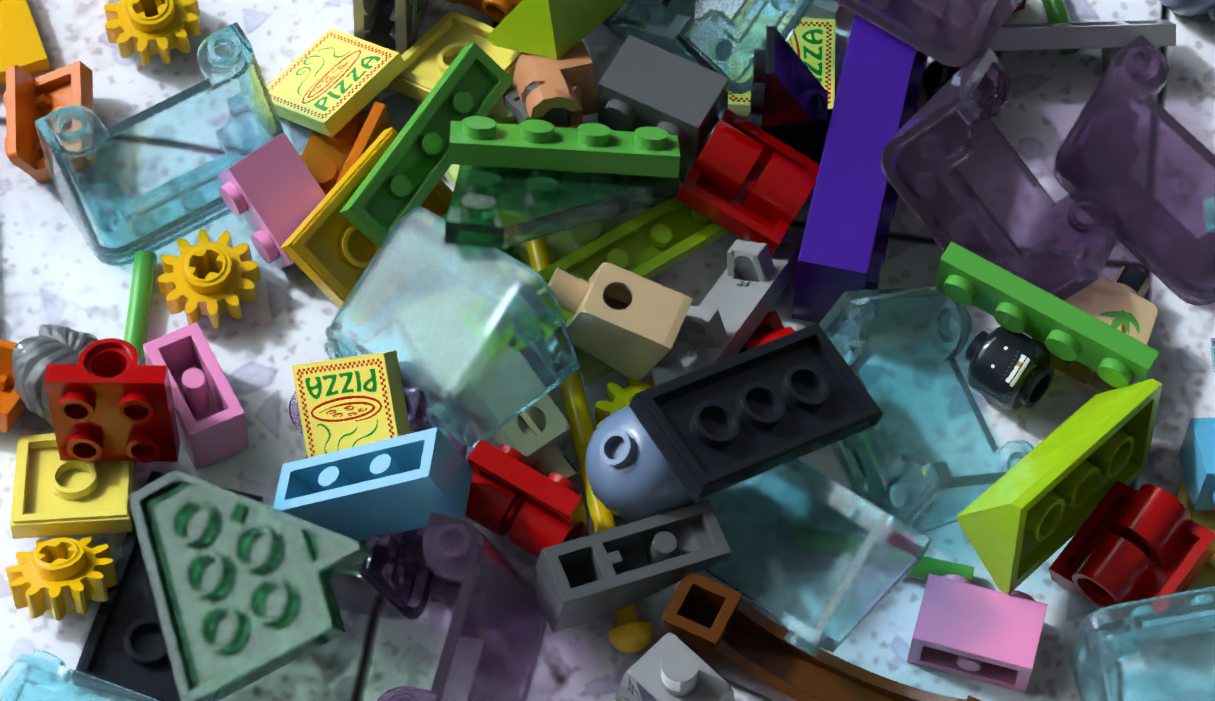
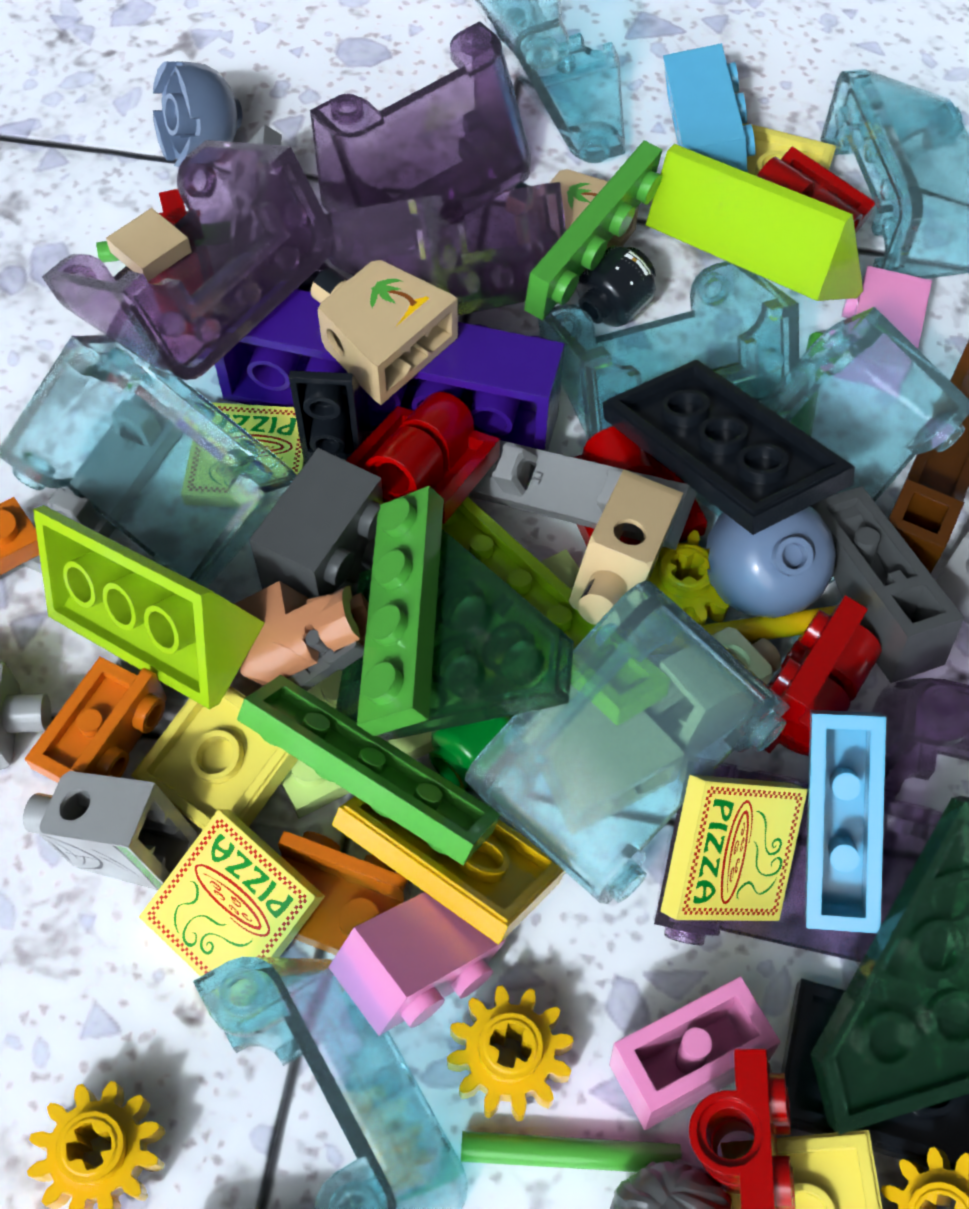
camera: 90 degrees left, 0 degrees up
(852, 105) = (383, 324): none -> tan torso

